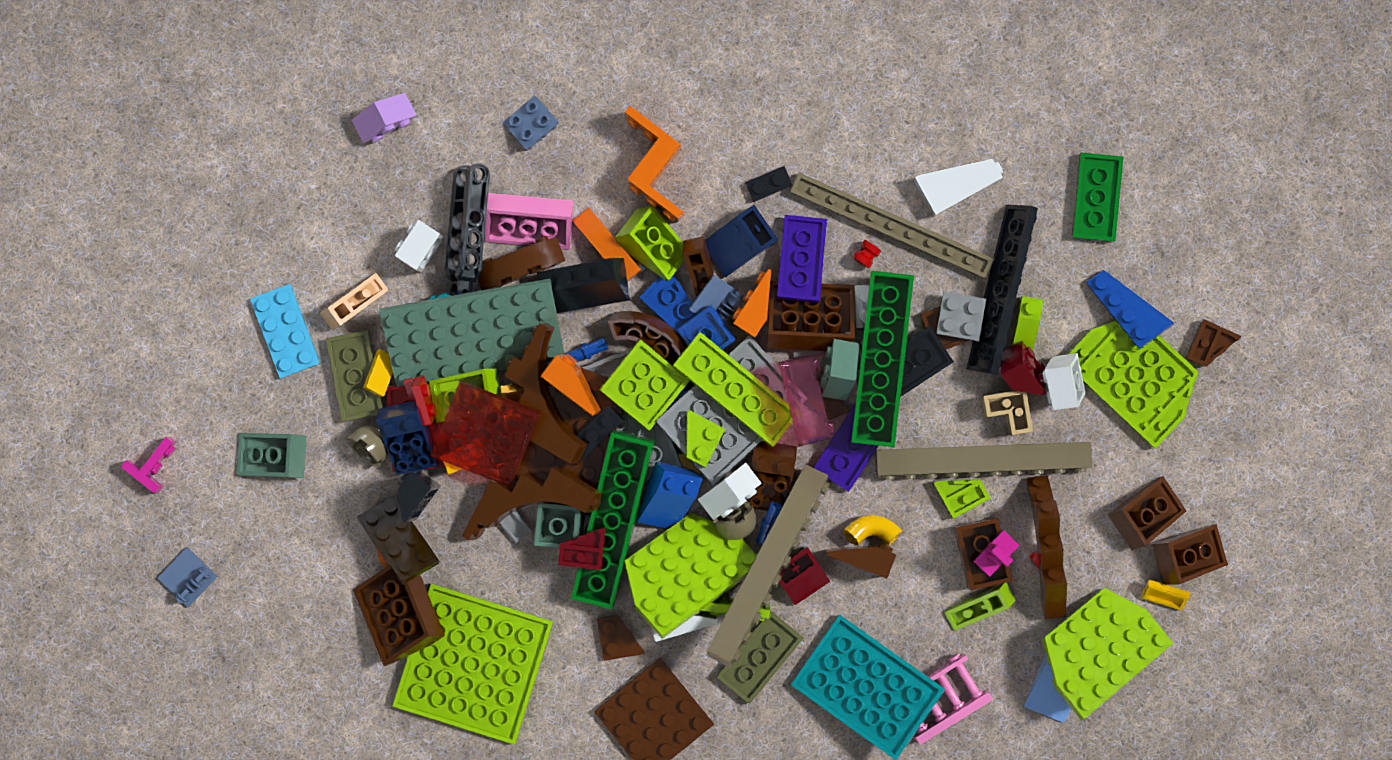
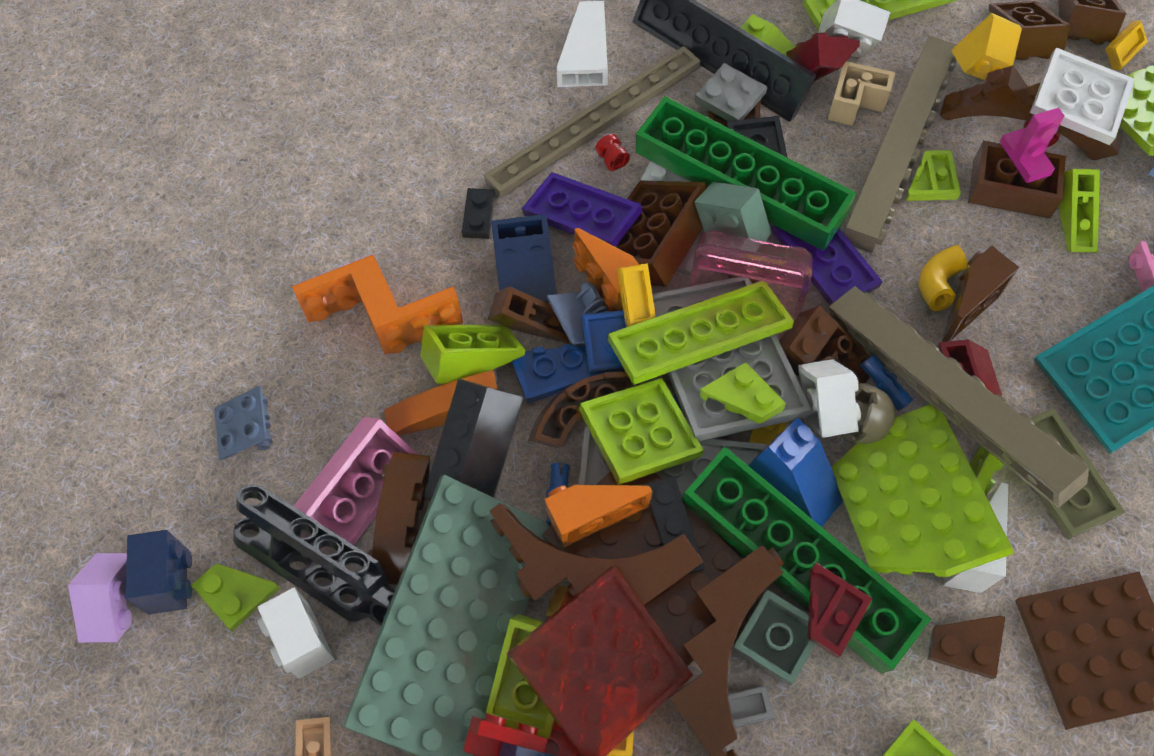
camera: 65 degrees left, 25 degrees down
(412, 141) = (157, 572): none -> dark blue brick
(426, 188) = (233, 593): none -> lime wing
(738, 335) = (636, 294): none -> yellow tile
(1051, 574) = (1086, 93): none -> white plate
(1091, 492) = (988, 47): none -> yellow slope

